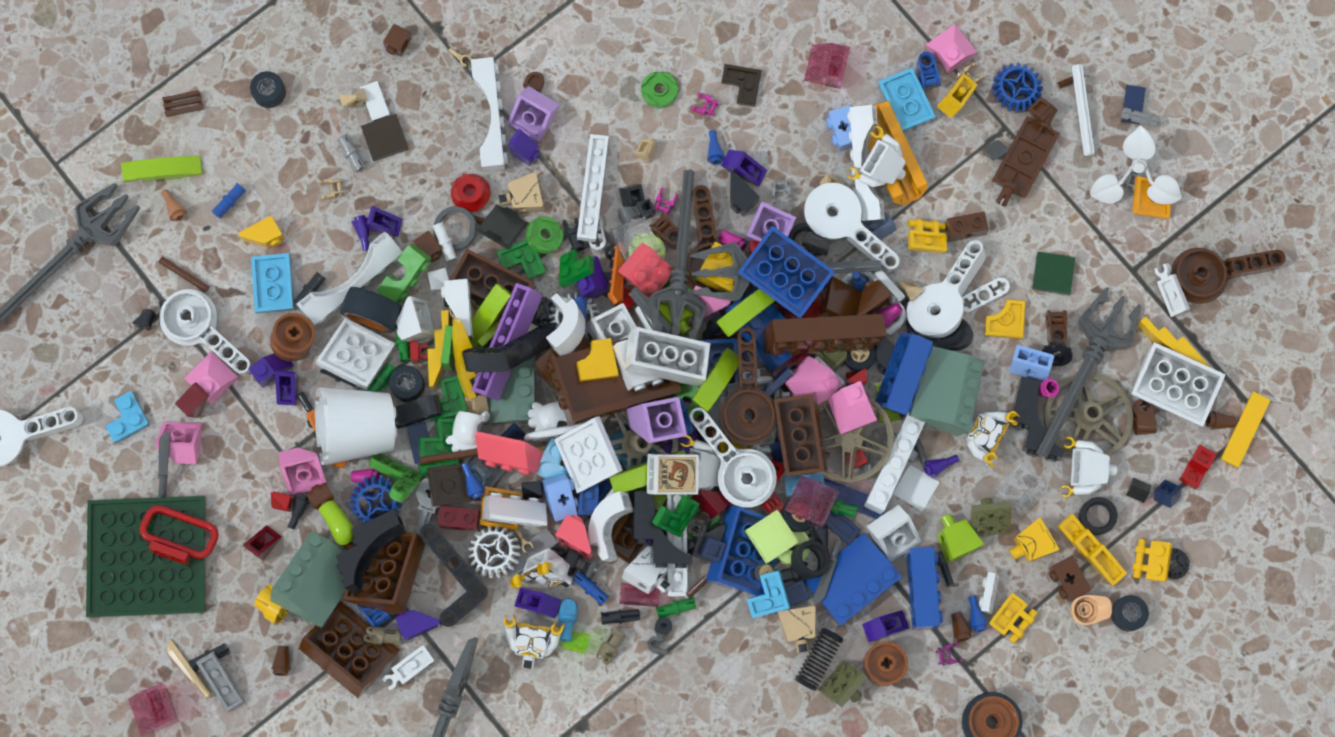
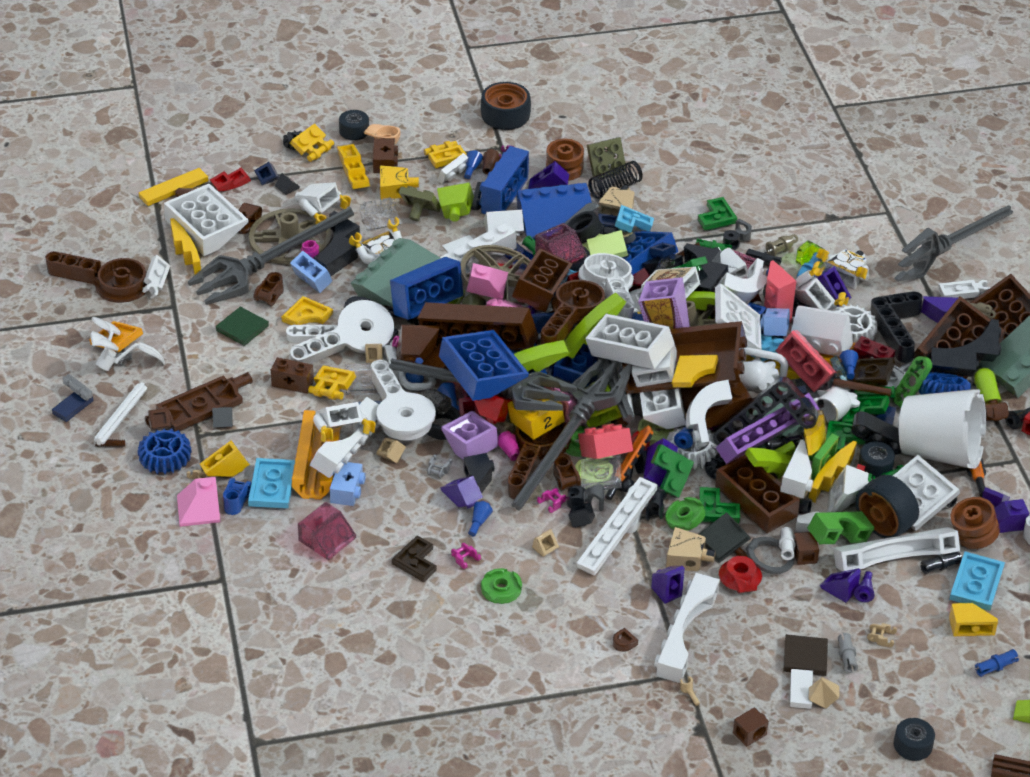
camera: 155 degrees left, 35 degrees down
(301, 470) = (1008, 439): bright pink slope -> none
(533, 113) = (639, 609): lavender slope -> none
(688, 661) = (719, 214): none -> green plate
(935, 467) = (439, 248): dark purple cone -> none
(1061, 358) = (286, 272): black gear -> none
(1112, 513) = (336, 172): black tyre -> none

